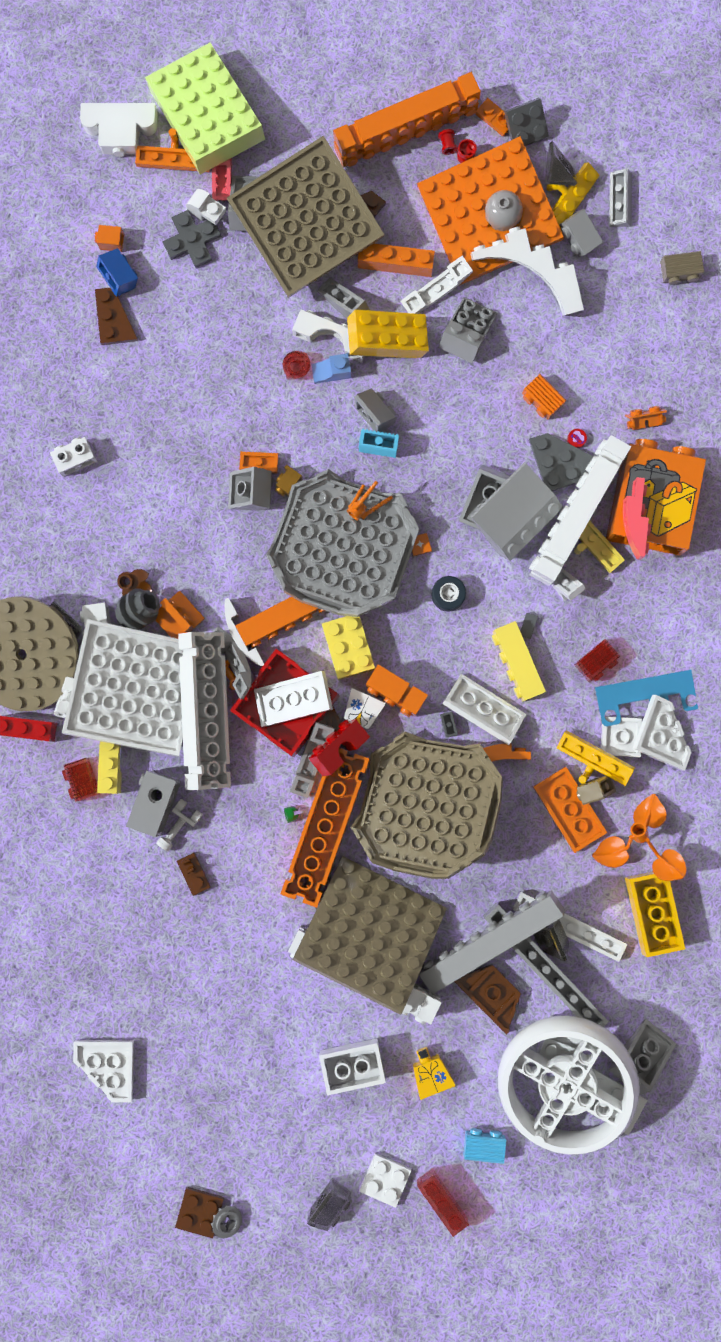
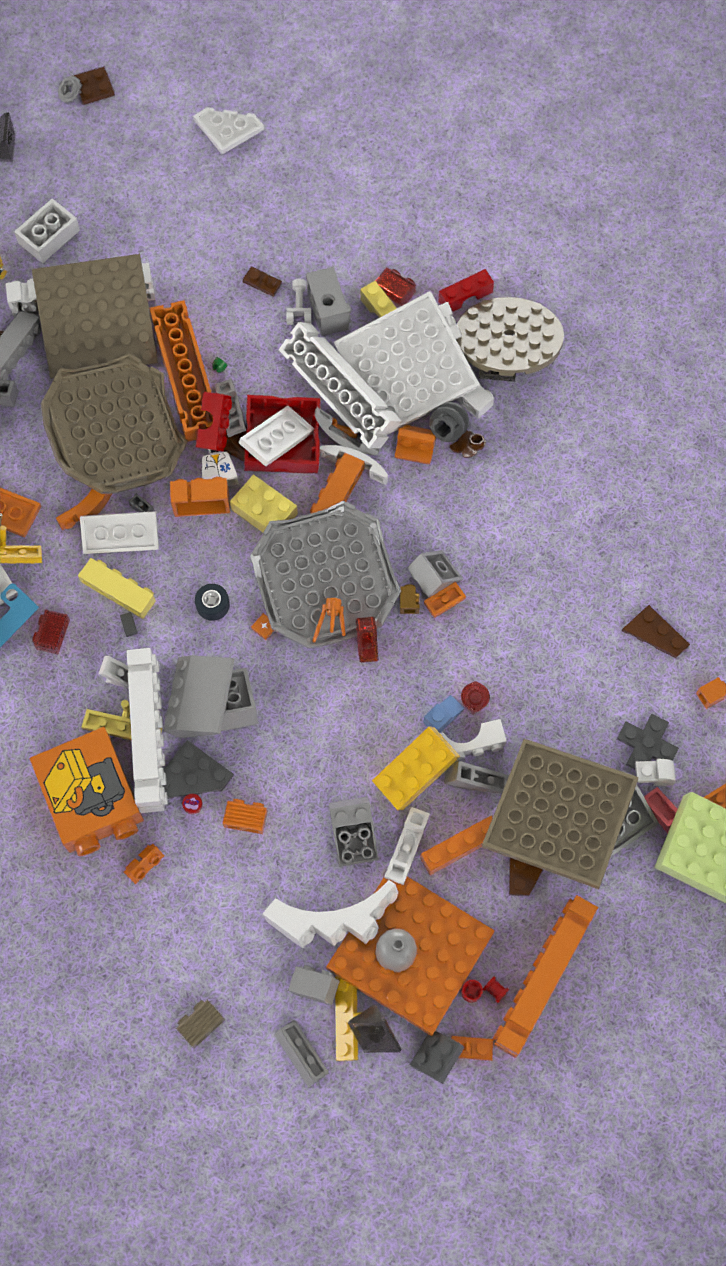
camera: 140 degrees right, 15 degrees down
(73, 456) = (594, 502): white brick -> none
(117, 272) = (683, 668): blue brick -> none
(348, 466) = (367, 639): none -> clear red brick
(374, 411) = (380, 701): light grey slope -> none
(378, 443) = (357, 678): medium azure brick -> none
(635, 525) = (88, 741): coral slope -> none

